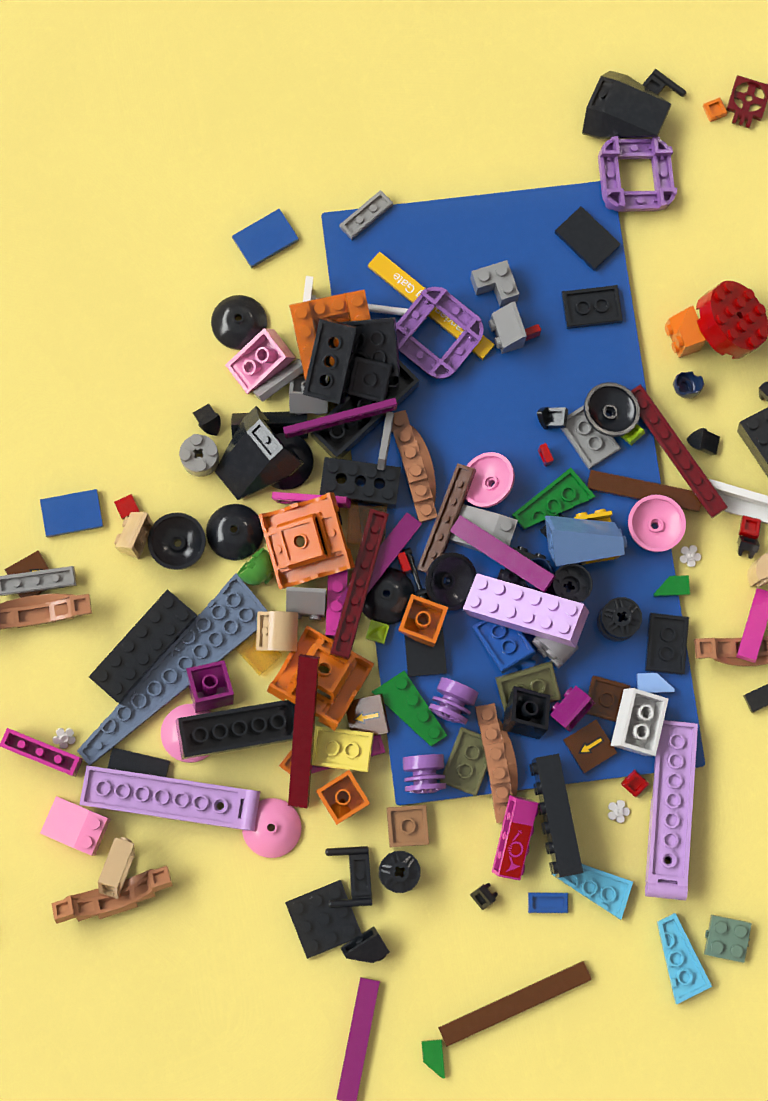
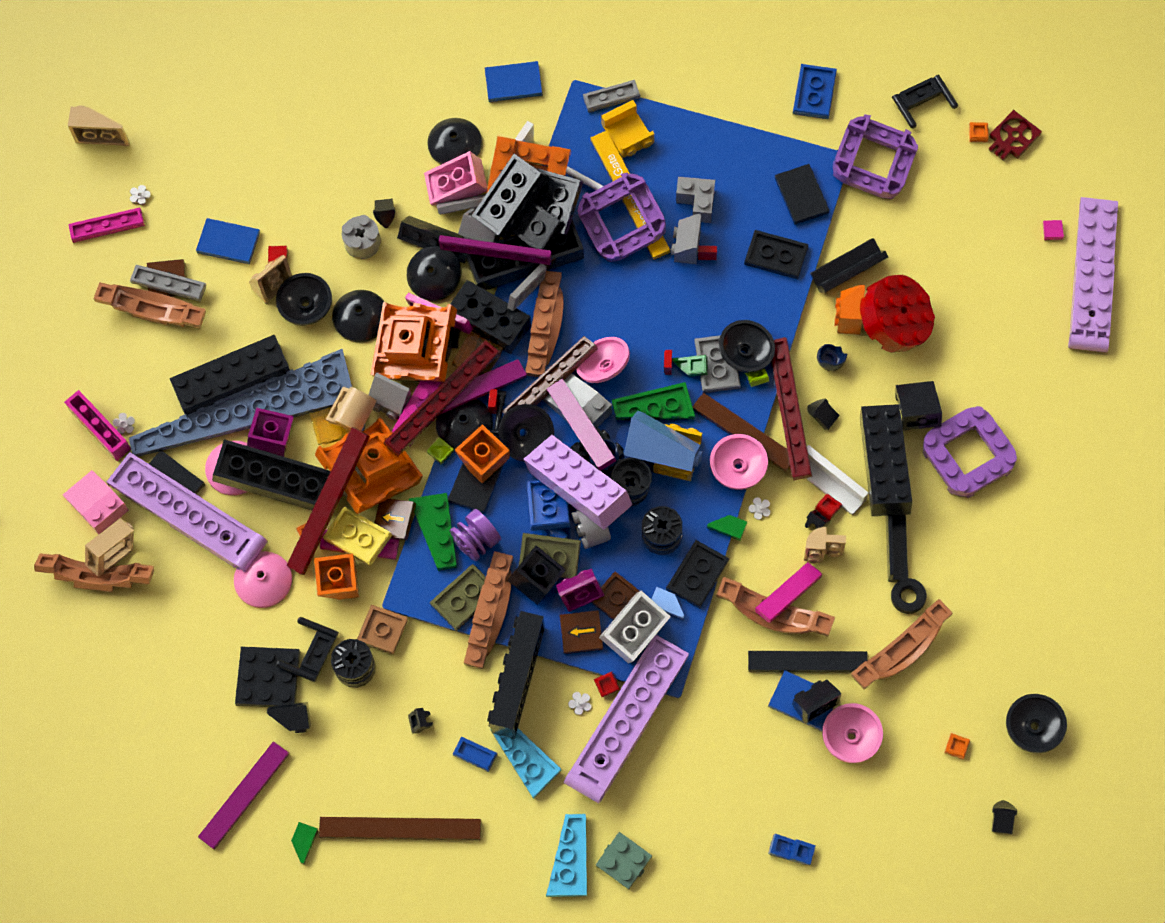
camera: 35 degrees right, 10 degrees down
(255, 457) = (407, 257): black wedge -> none
(257, 569) = (361, 352): bright green cylinder -> none
(398, 243) = (627, 129): none -> yellow panel
(424, 773) = (417, 585): medium lavender wheel -> none
(515, 837) = (471, 679): dark pink brick -> none
(549, 131) = (814, 91): none -> blue tile
(552, 417) = (690, 332): black tile -> none
(569, 448) = (693, 365): none -> tile
(624, 109) = (889, 95): black wedge -> none
(662, 290) = (848, 265): none -> black panel

